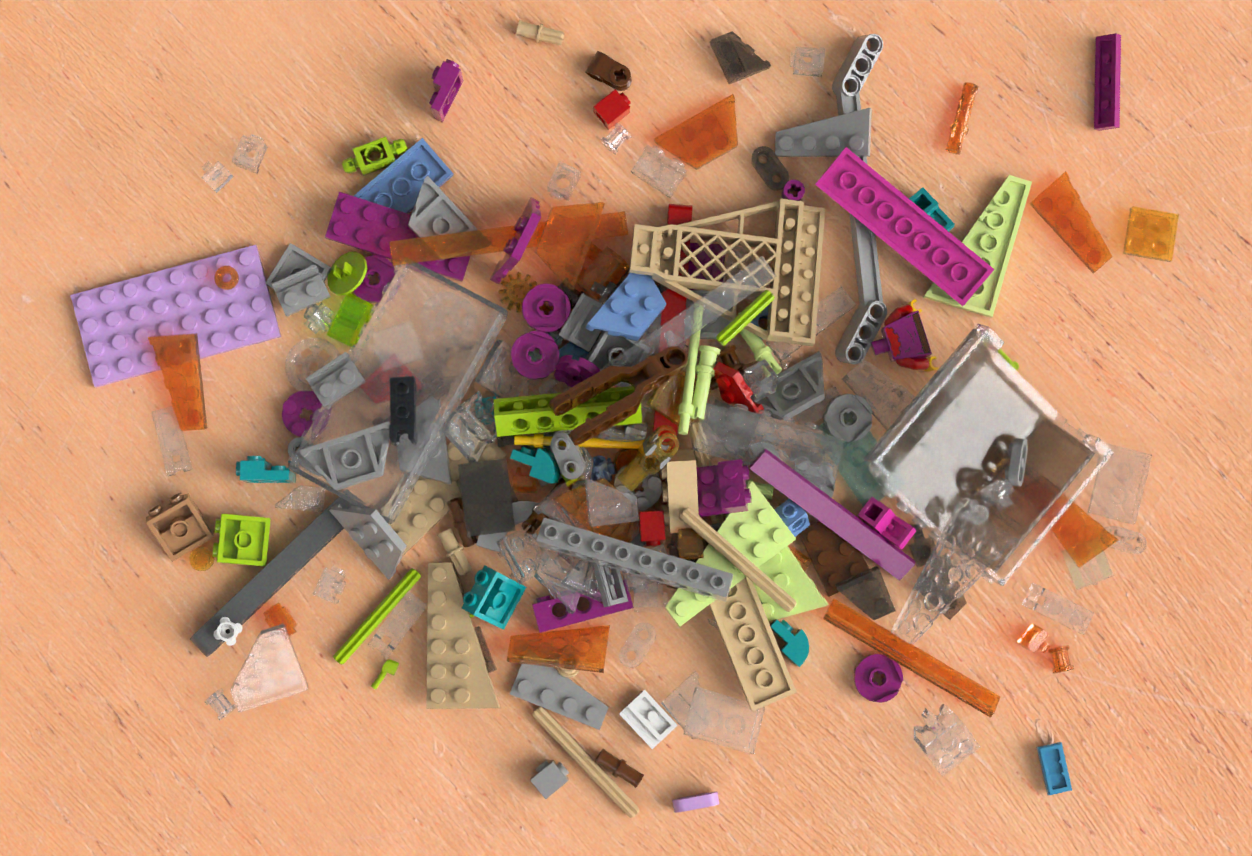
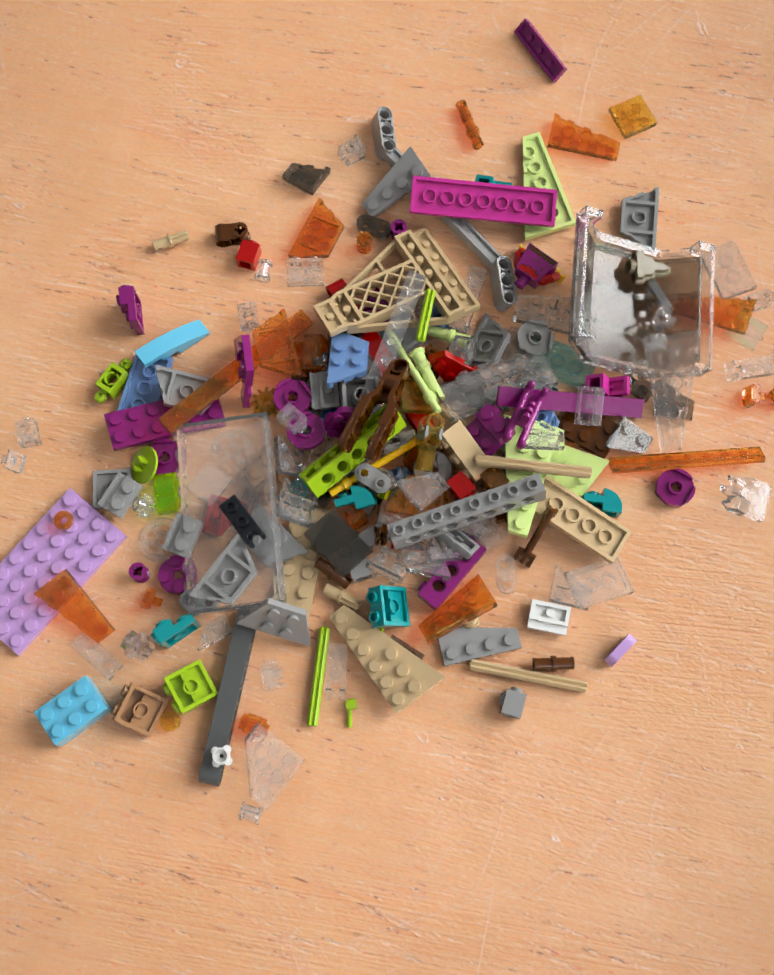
camera: 25 degrees left, 10 degrees down
(113, 483) = (73, 711): none -> medium azure brick
(217, 461) = (137, 645): none -> clear brick
(260, 420) = (150, 599): none -> clear orange tile
(262, 381) = (133, 572): none -> magenta bush
(463, 156) = (172, 342): none -> medium azure slope
(524, 328) = (291, 413): none -> clear brick
(674, 638) = (527, 552): none -> reddish brown hinge
(752, 176) = (364, 242): none -> clear orange bush
(765, 502) = (525, 416): none -> magenta piece
(771, 533) = (545, 437): none -> clear wing
(848, 533) = (589, 405): none -> clear hinge
(1023, 423) = (644, 268): none -> dark tan rock
(1067, 359) = (640, 218): none -> light grey wing

